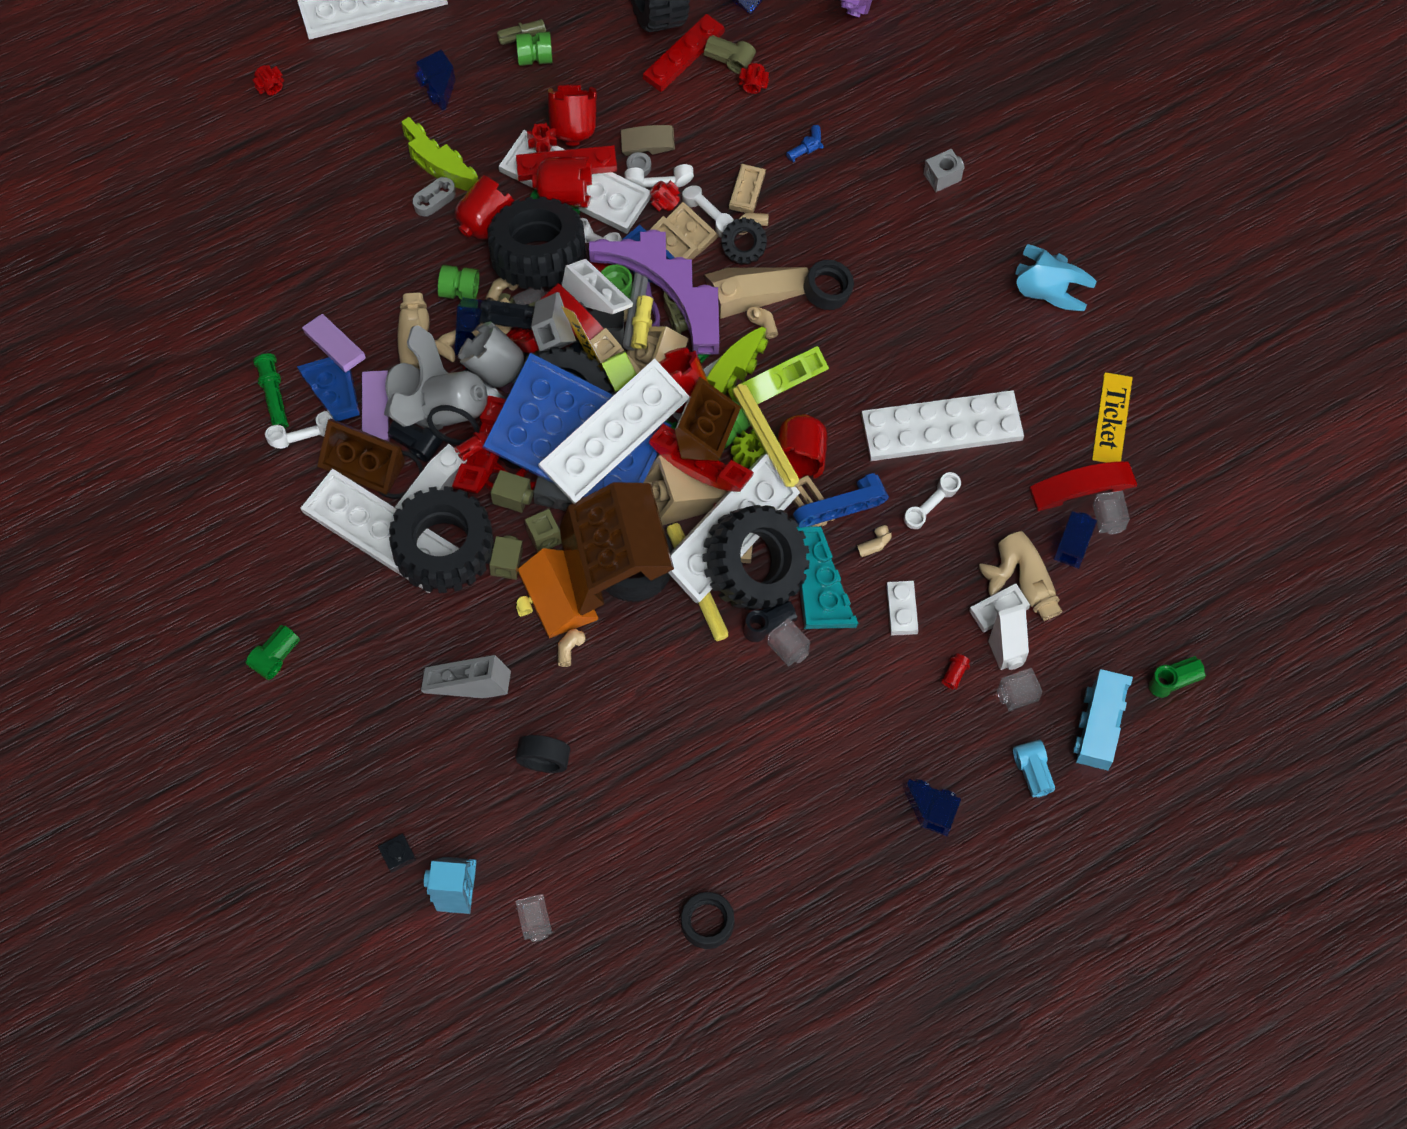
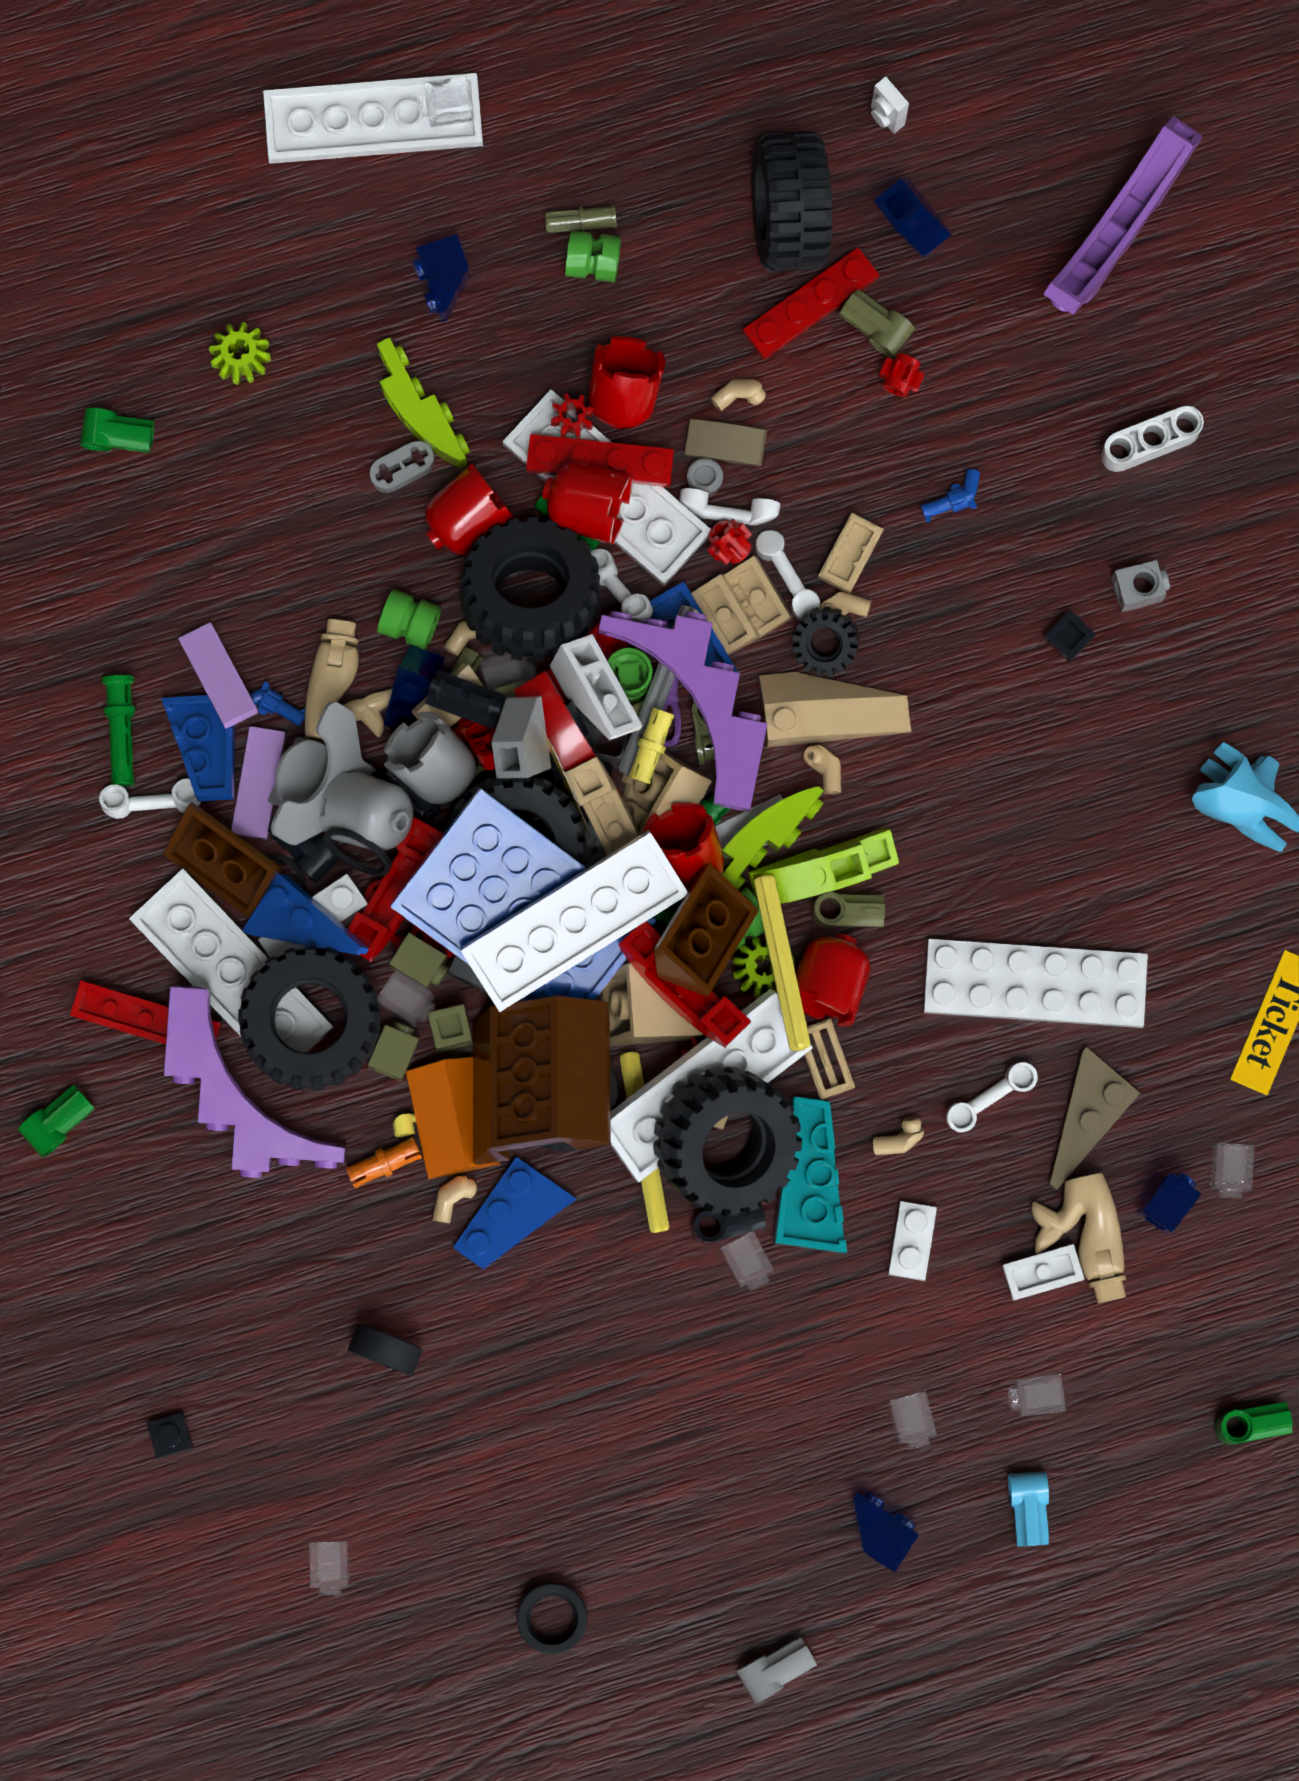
camera: 10 degrees right, 15 degrees up
(229, 211) = (106, 430): none -> green piece
(268, 80) = (198, 225): red gear -> none
(310, 149) = (249, 361): none -> lime gear
(325, 572) = (124, 1012): none -> red plate
(376, 355) = (272, 702): none -> blue piece
(391, 613) = (257, 1137): none -> medium lavender arch
(415, 475) = (295, 917): none -> blue wing
(451, 884) = (234, 1496): medium azure wedge -> none
(468, 678) = (307, 1216): light grey slope -> none
(471, 445) = (377, 889): red pin -> none
(507, 520) = (406, 999): none -> clear brick
(515, 632) = (384, 1162): none -> orange pin
(612, 649) = (511, 1212): none -> blue wing
(619, 370) = (601, 827): lime brick -> none
(648, 108) = (736, 389): none -> tan arm
(804, 403) = (852, 910): none -> olive piece
(833, 269) = (953, 722): black tyre -> none
(870, 495) = (911, 1067): blue beam -> none
(877, 924) = (769, 1673): none -> light grey piece
(906, 209) = (1069, 636): none -> black plate
(915, 91) = (1164, 427): none -> white beam
(934, 724) = (912, 1420): none -> clear brick
(958, 665) = (960, 1349): red pin -> none
(1005, 493) = (1094, 1106): none -> dark tan wing
(1010, 637) = (1041, 1331): white slope -> none
(1082, 482) = (1206, 1115): red slope -> none
(1102, 719) = (1134, 1467): medium azure wedge -> none

